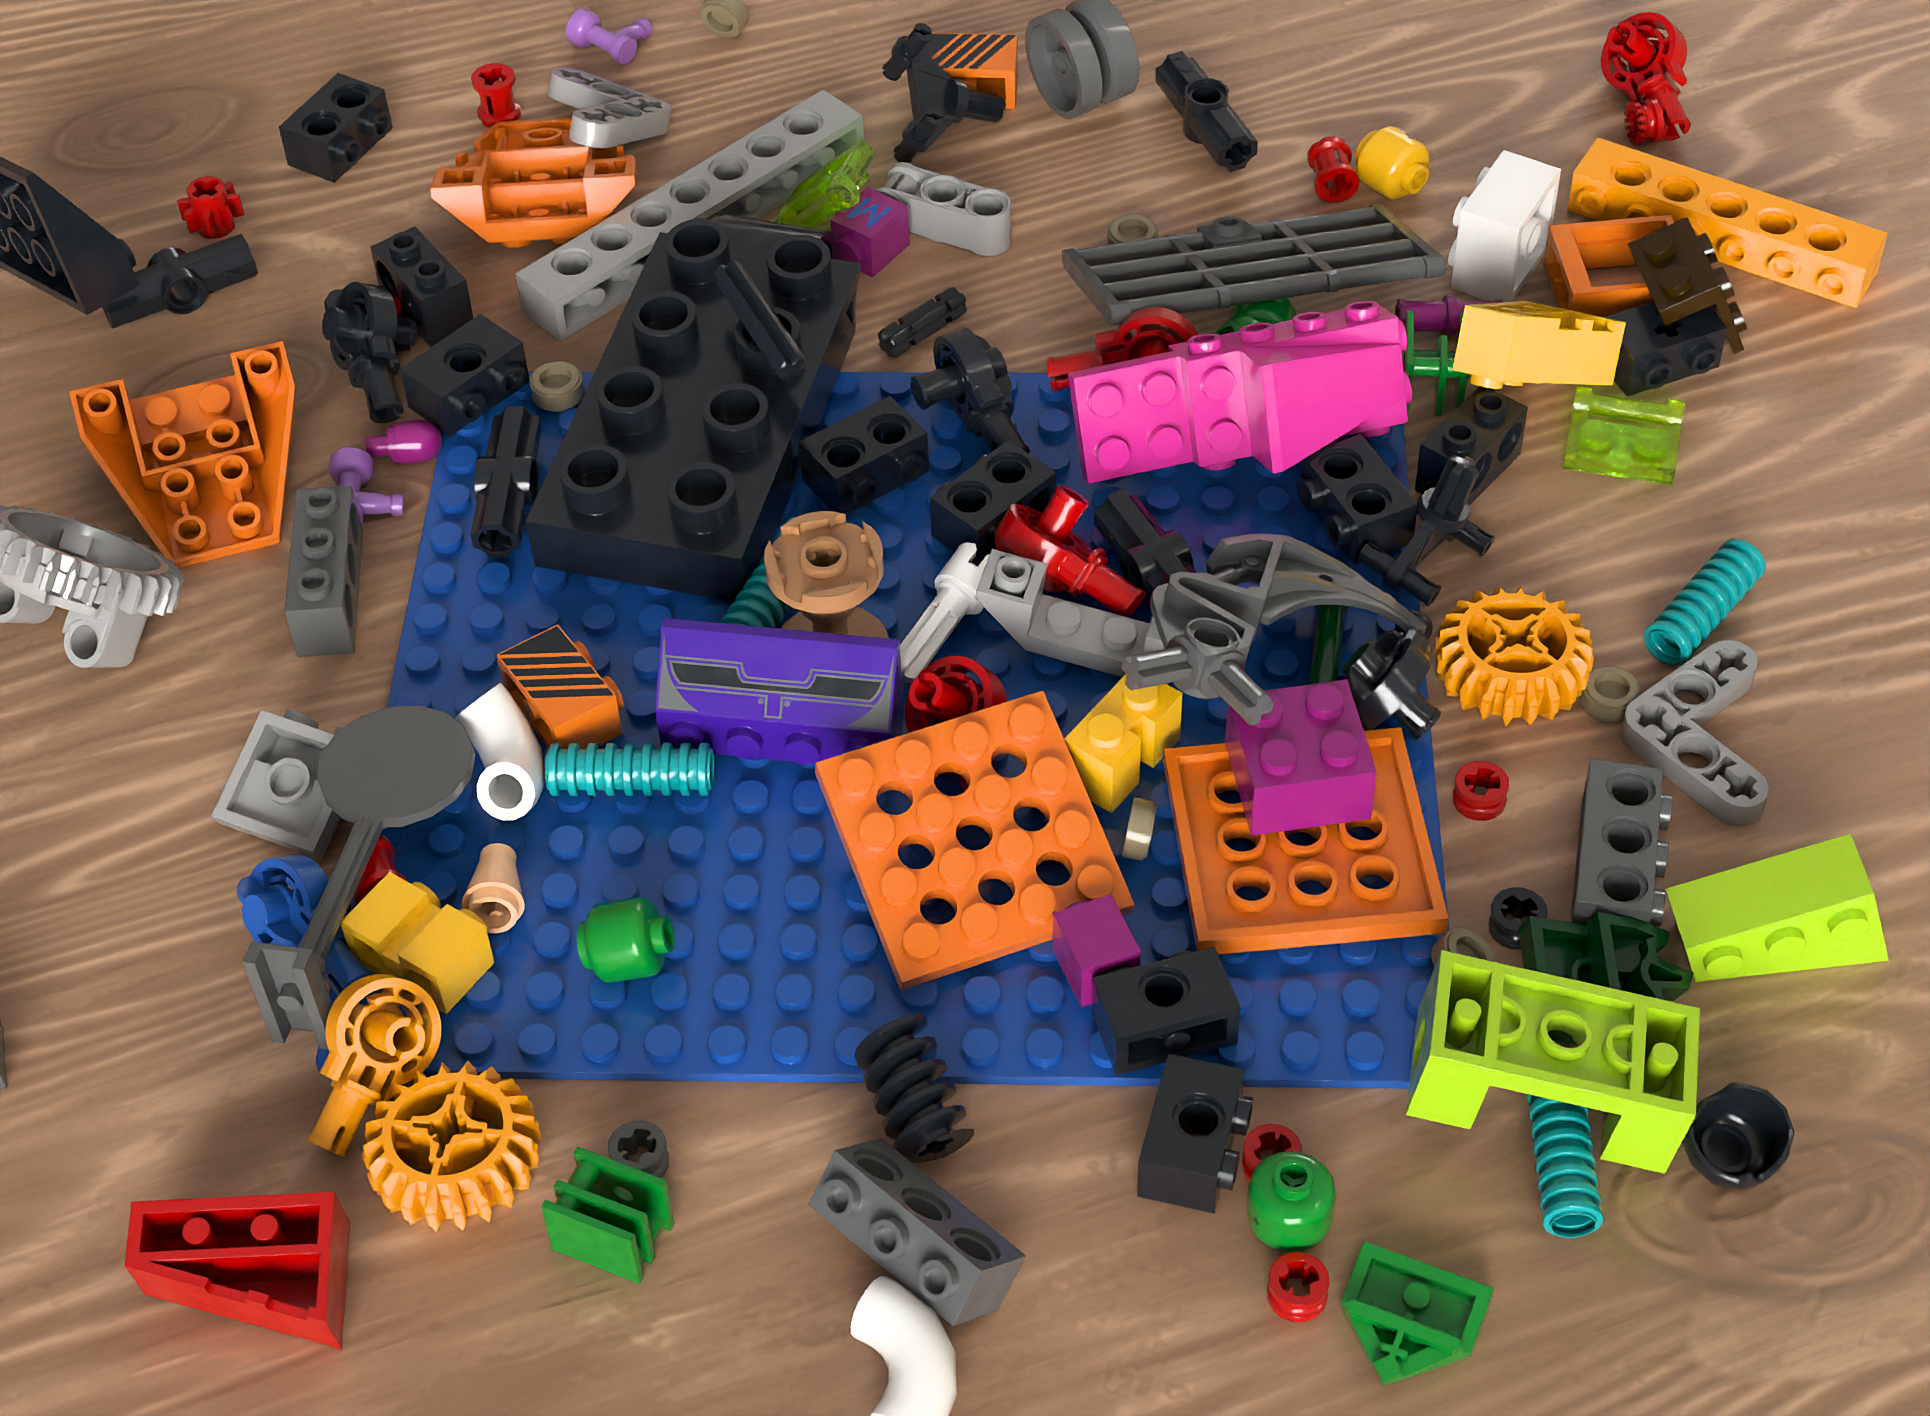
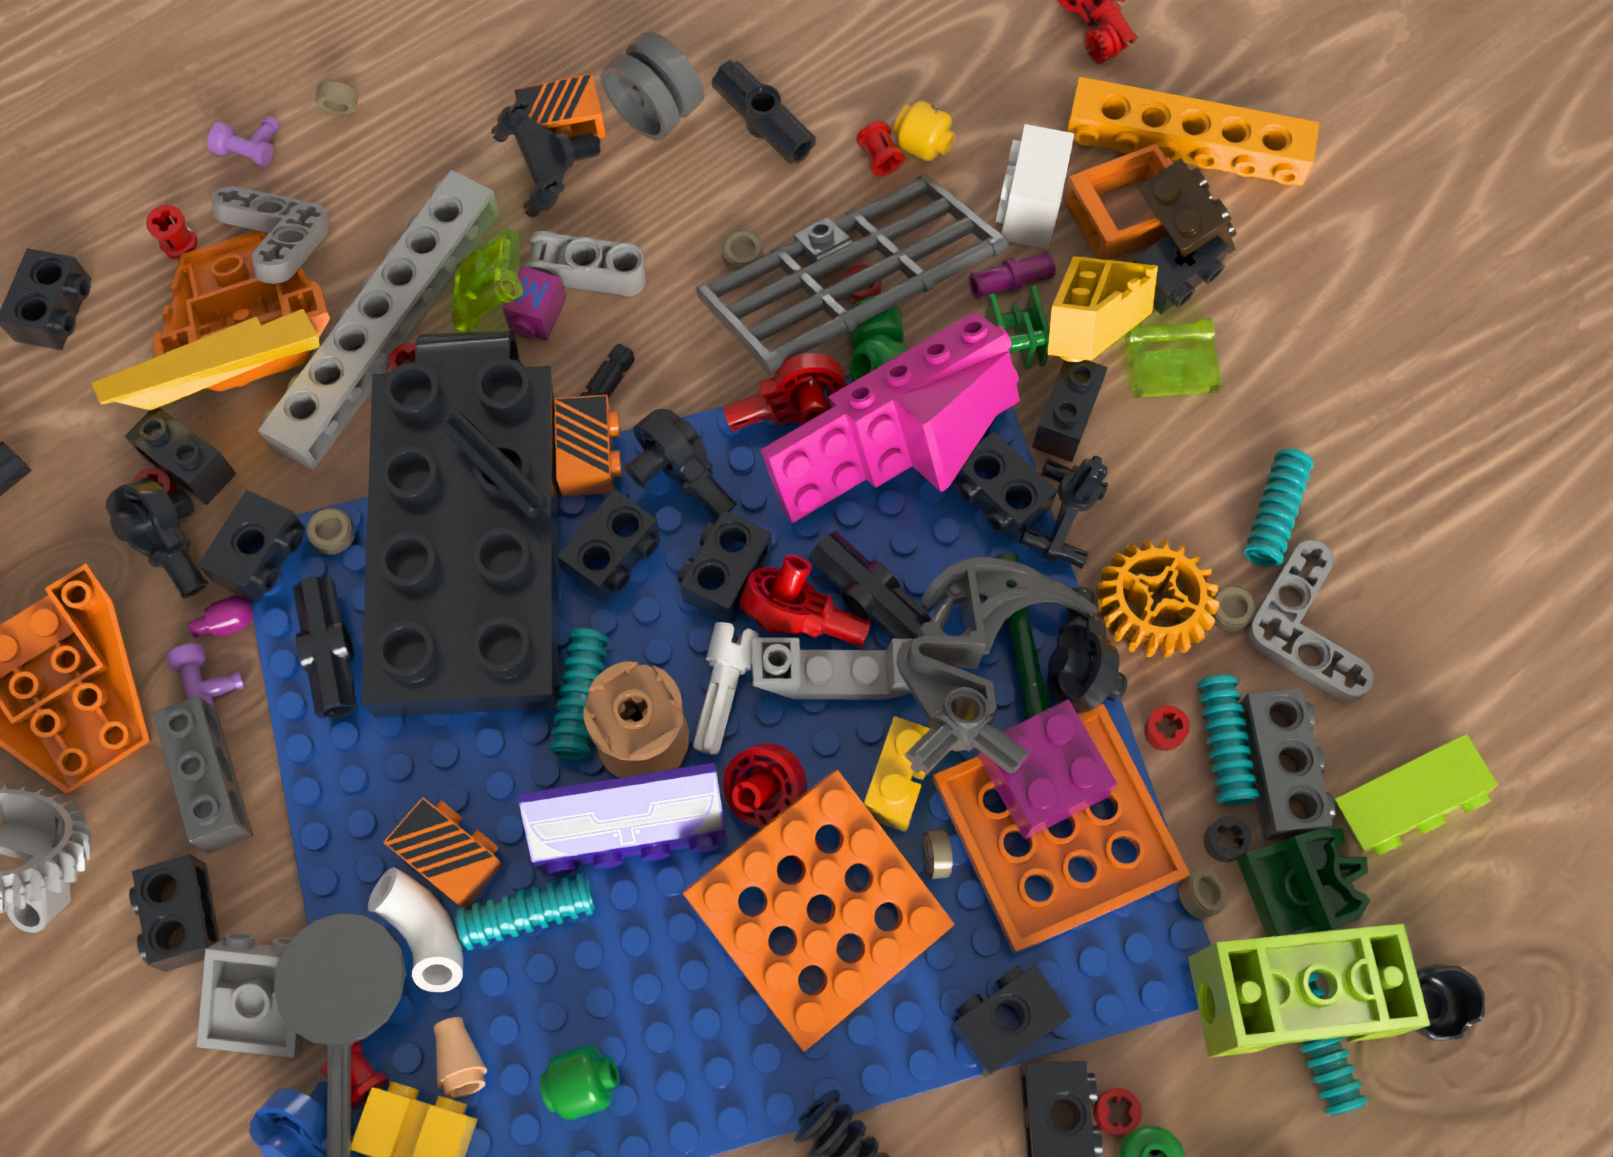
camera: 20 degrees left, 20 degrees up
(237, 679) = (188, 907): none -> black brick
(492, 193) = (208, 361): none -> yellow wedge
(874, 358) = (585, 445): none -> brick
(1091, 942) = (940, 978): magenta brick -> none
(1552, 815) = (1227, 740): none -> teal piece

